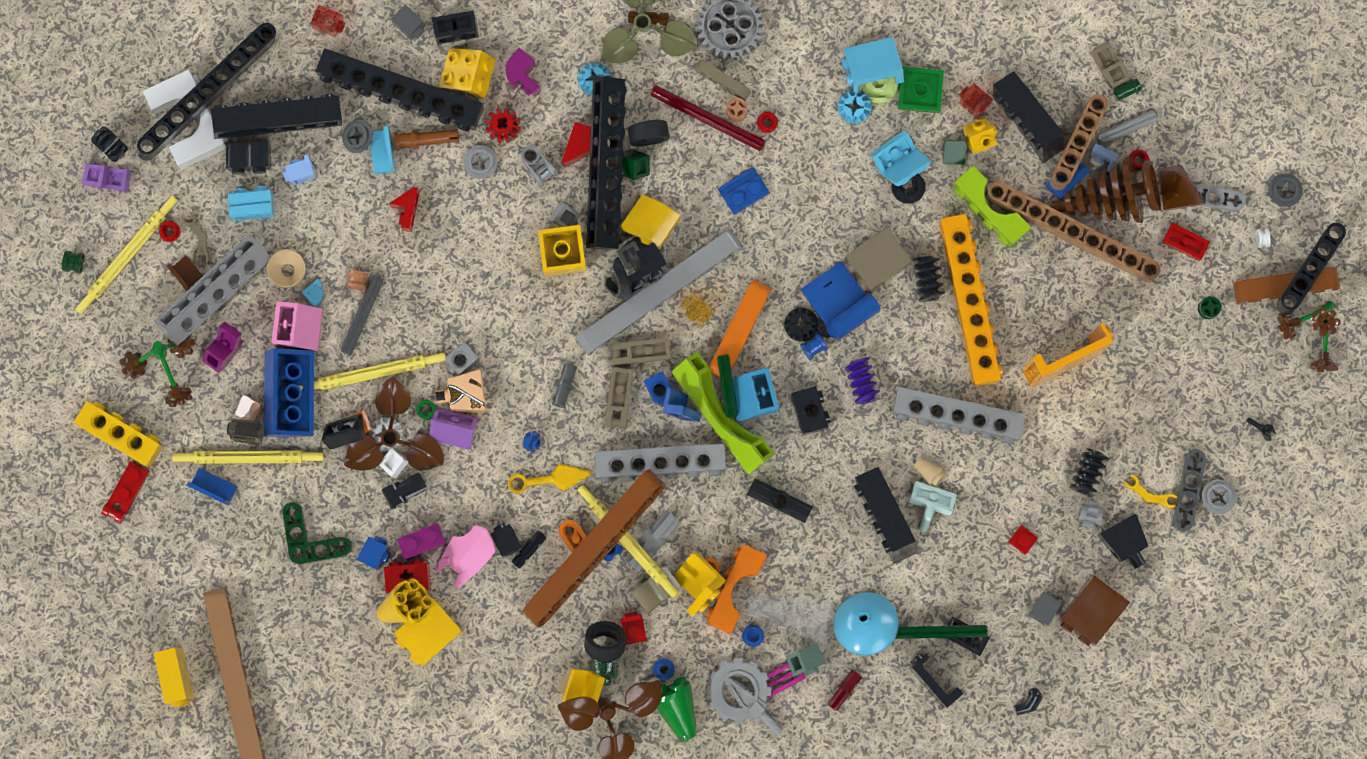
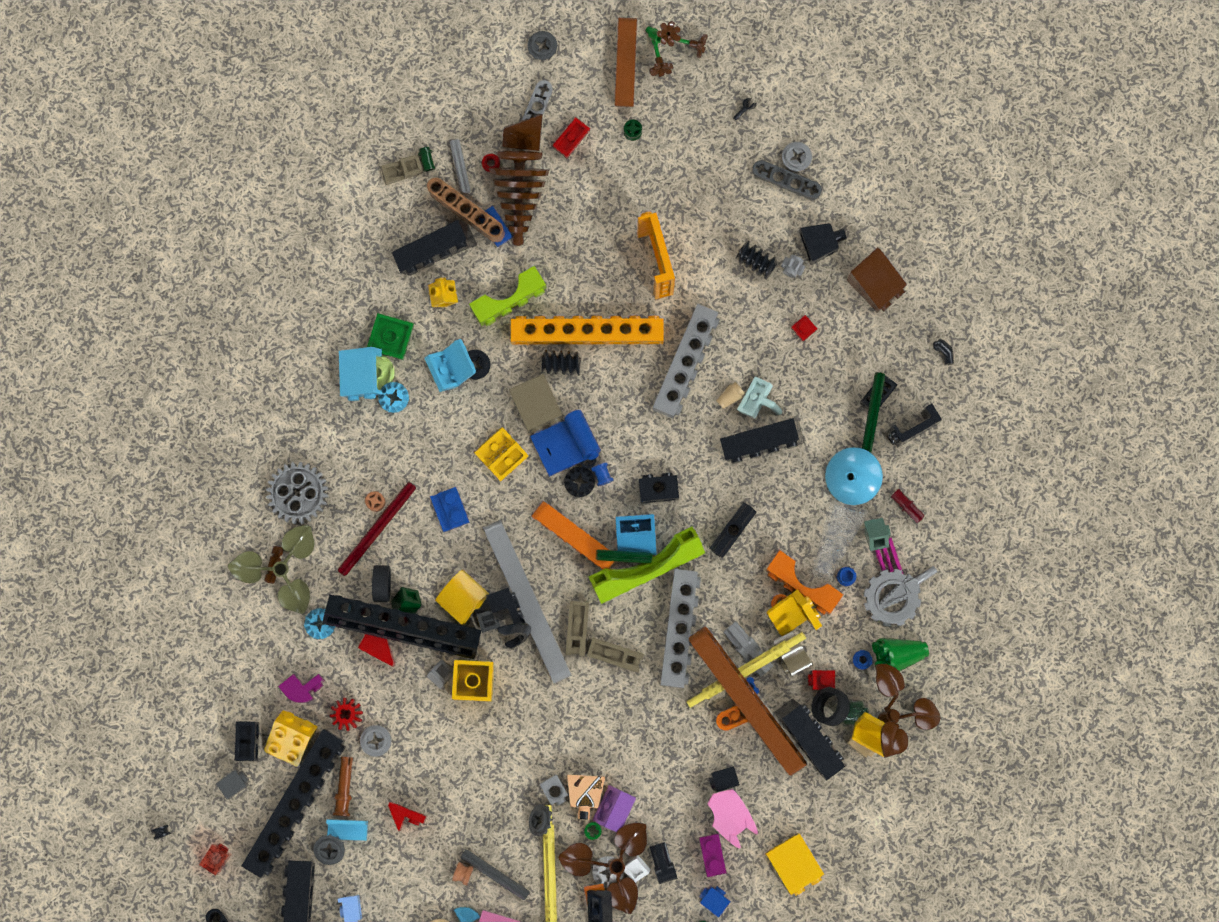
camera: 80 degrees left, 0 degrees up
(394, 573) = (746, 885): red brick -> none
(405, 603) = (768, 879): yellow cone -> none
(421, 350) = (537, 826): none -> dark grey gear
(529, 549) = (735, 760): black axle -> none
(532, 441) = (640, 740): blue plate -> none
(540, 168) = (391, 688): light grey piece -> none
(562, 477) = (675, 718): yellow piece -> none
(564, 385) = (594, 701): dark grey pin -> none
(565, 625) = (810, 738): none -> black wedge
(654, 381) = (608, 624): blue brick -> none
(676, 406) = (633, 605): blue panel -> none
(697, 310) = (549, 571): clear yellow brick -> none
(717, 76) = (350, 503): dark tan beam -> none
(770, 116) = (387, 472): red plate -> none
(810, 242) = (507, 460): none -> yellow slope
(862, 381) = (641, 437): dark purple piece -> none
(954, 152) = (452, 318): slope -> none
(975, 100) = (409, 291): clear red brick -> none
(1045, 608) = (866, 321): dark grey brick -> none
(1084, 231) = (545, 222): medium nougat beam -> none
(1103, 155) = (481, 191): sand blue bracket -> none
(1148, 497) = (786, 215): yellow piece -> none
(1262, 237) = (580, 73): white bush -> none
(1315, 259) = (614, 29): black beam -> none

